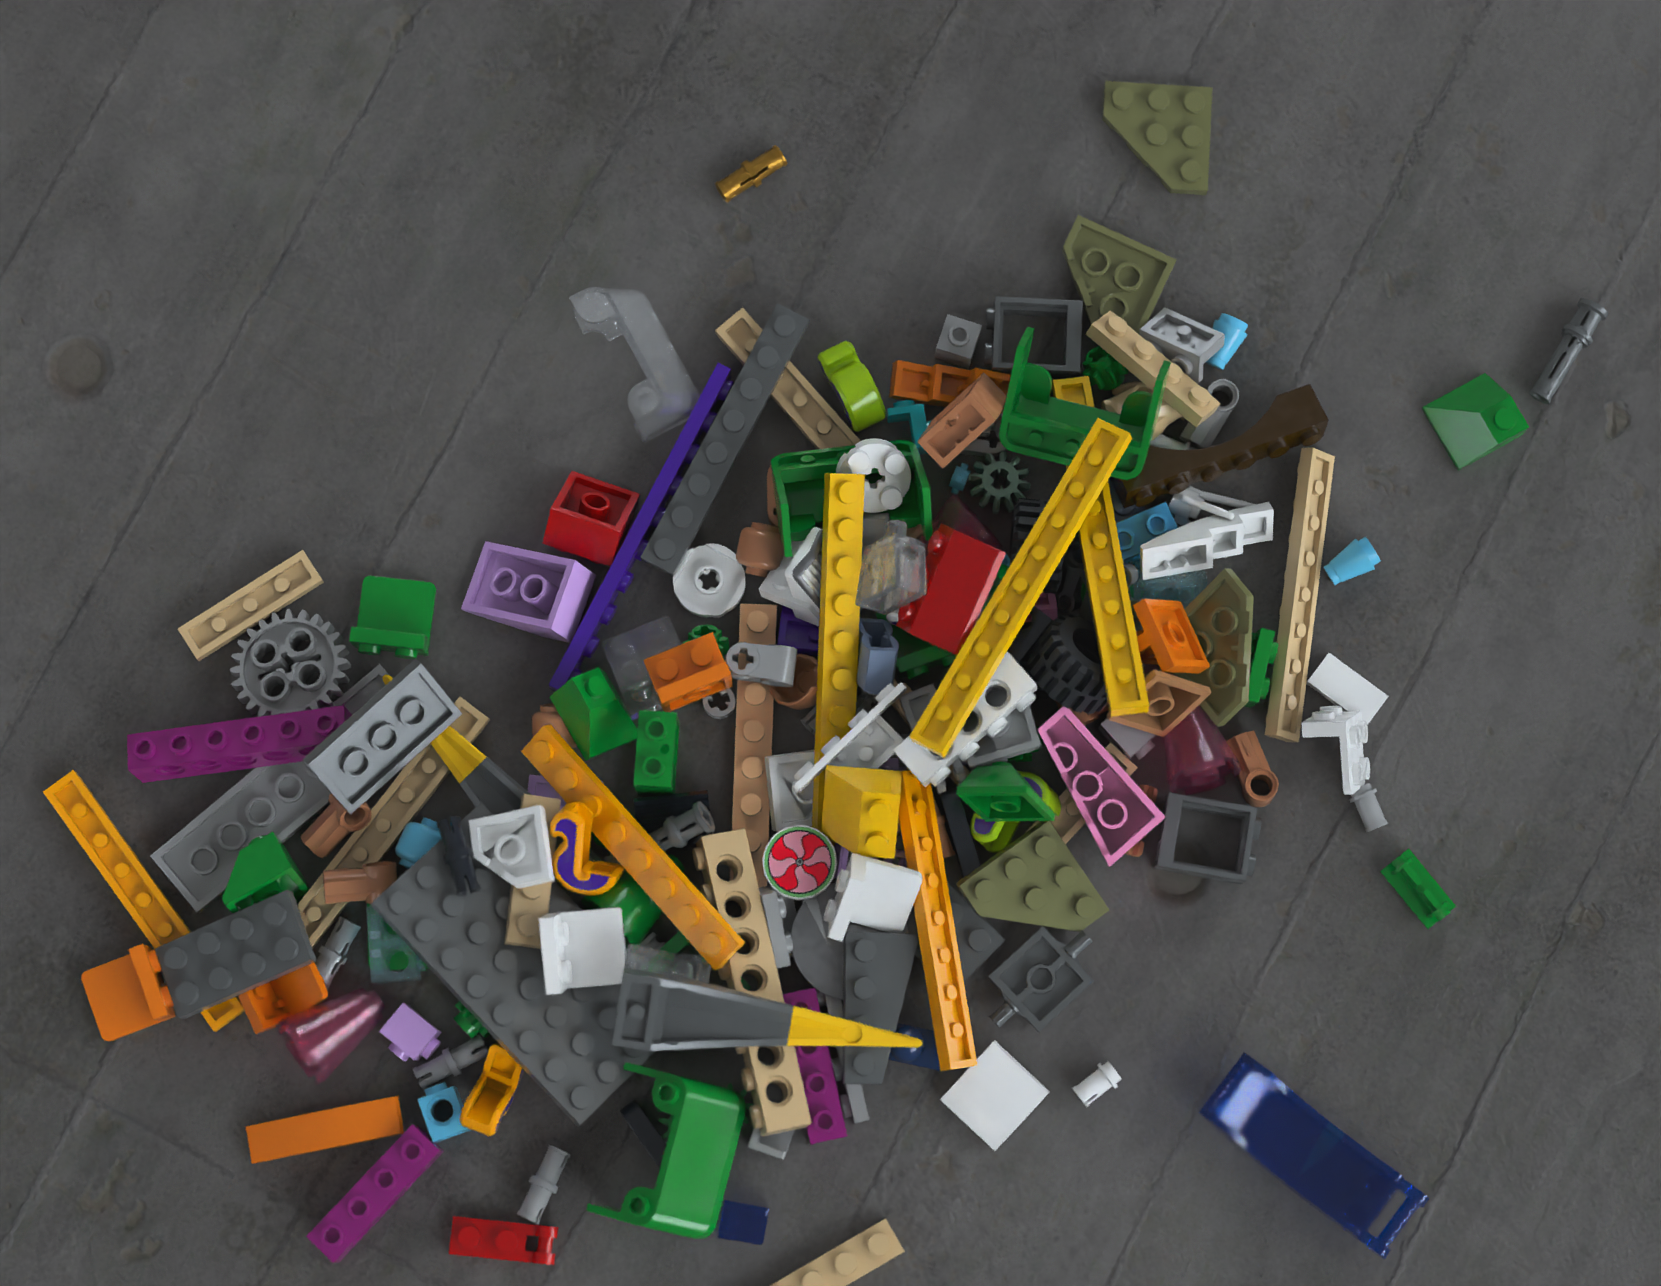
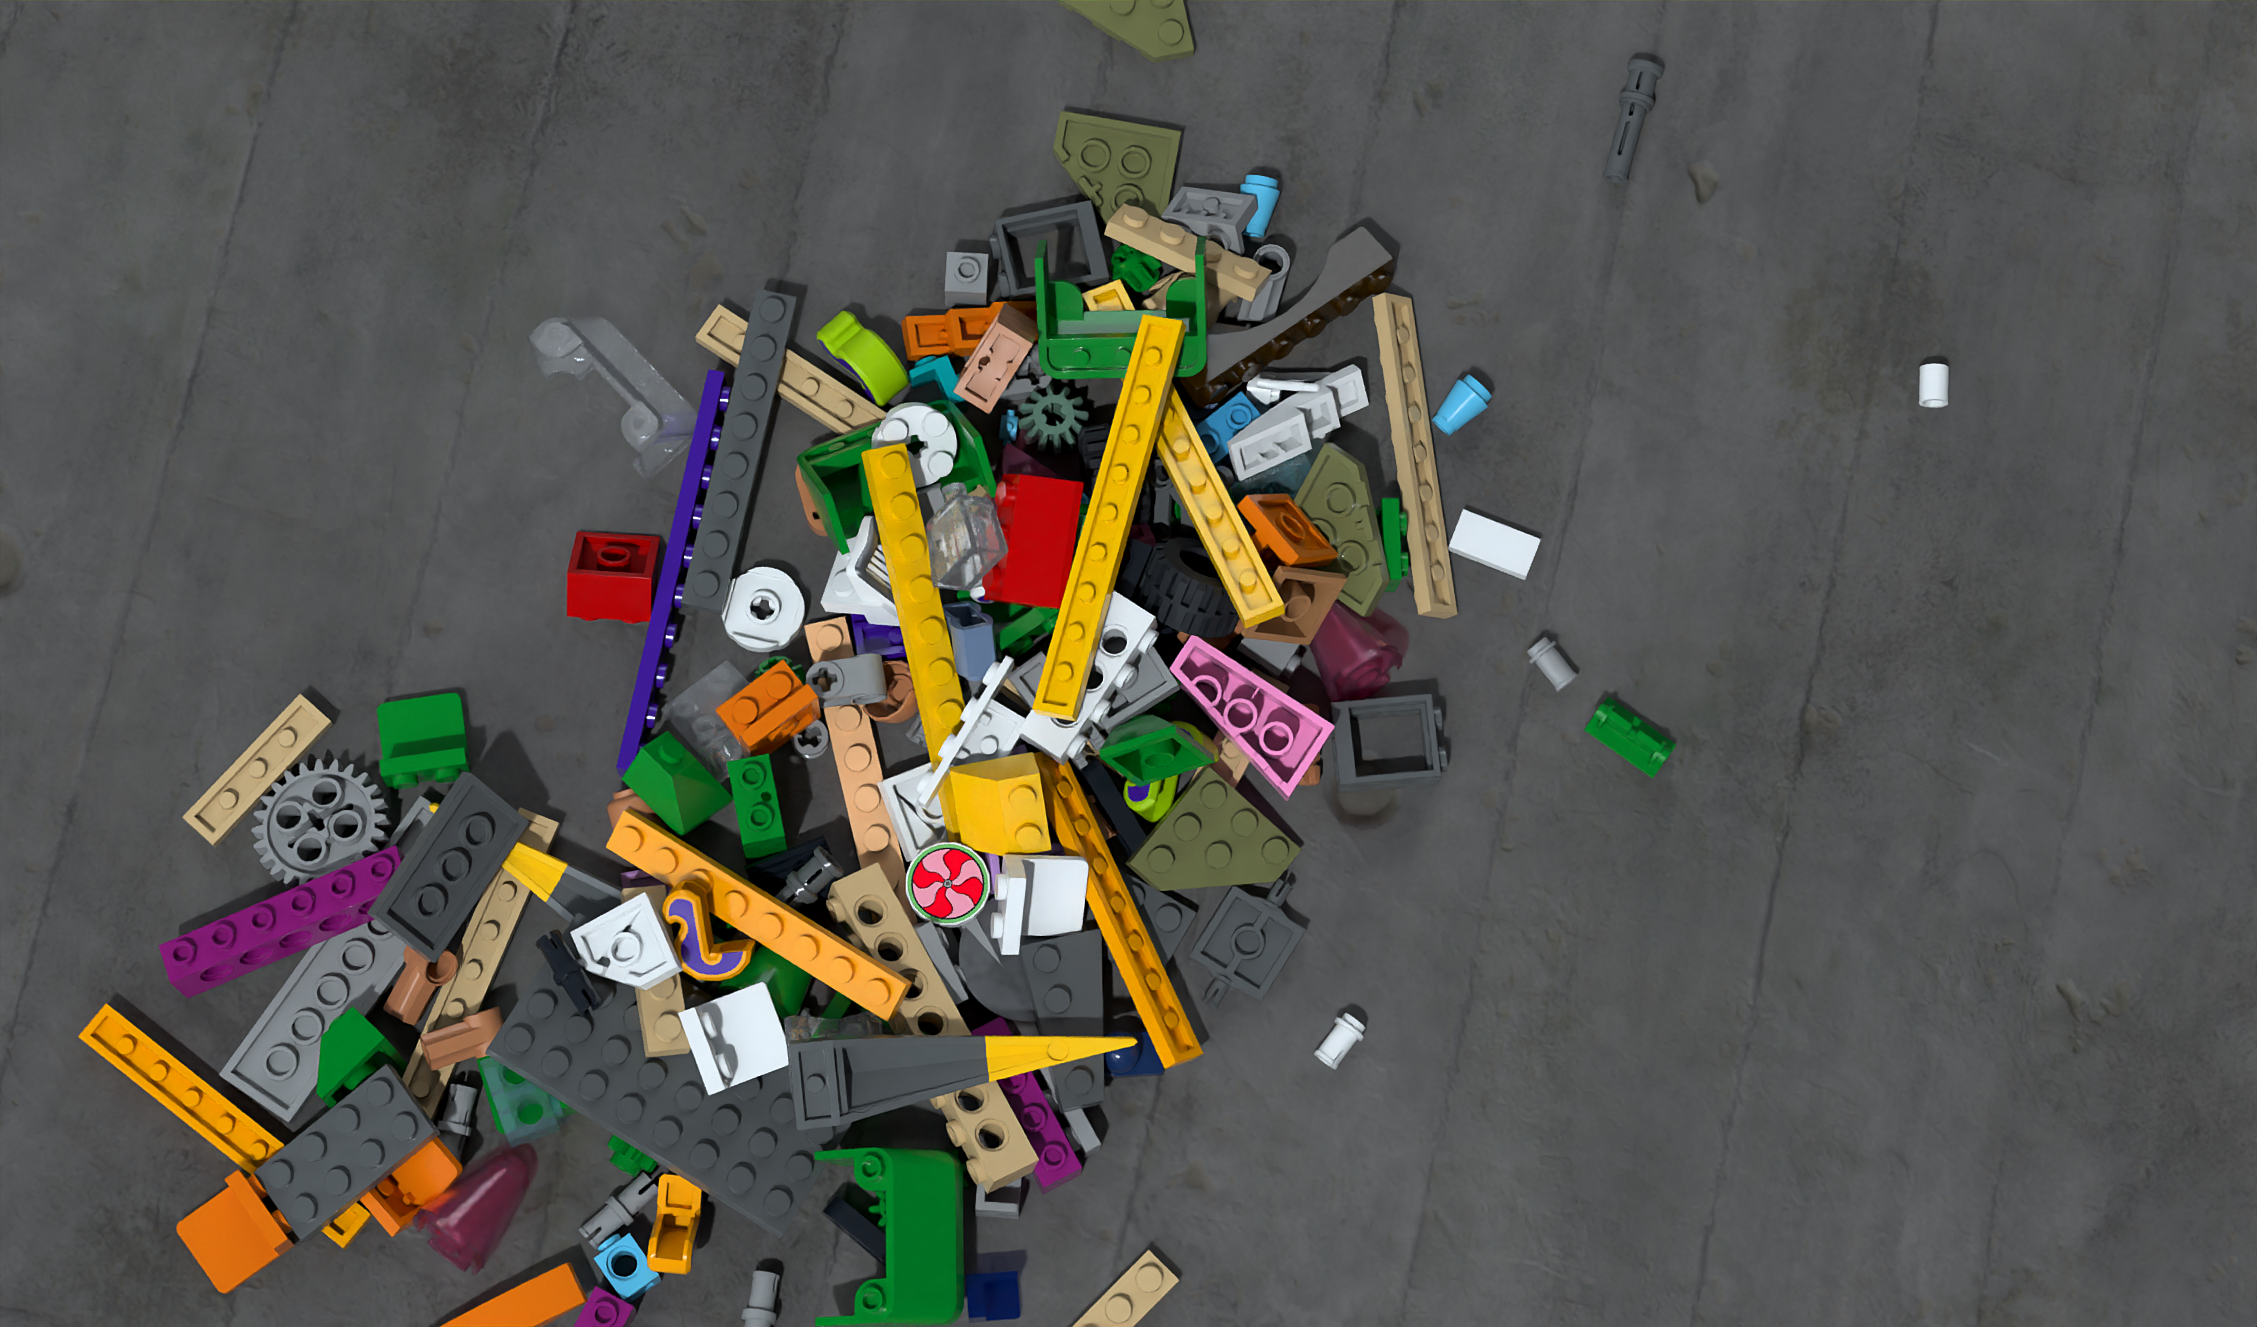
camera: 20 degrees left, 5 degrees down
(411, 1034) = (566, 1191): lavender brick -> none
(417, 841) = (515, 975): medium azure head -> none
(529, 591) = (566, 672): lavender slope -> none
(751, 173) = (688, 158): pearl gold pin -> none
(760, 549) = (810, 559): nougat head -> none
(994, 1095) = (1231, 1084): white slope -> none
(1253, 767) = (1416, 655): nougat piece -> none
(1309, 1153) = (1591, 1051): clear blue windscreen -> none
(1353, 733) = (1513, 590): white bracket -> none
(1475, 420) = (1552, 220): green slope -> none

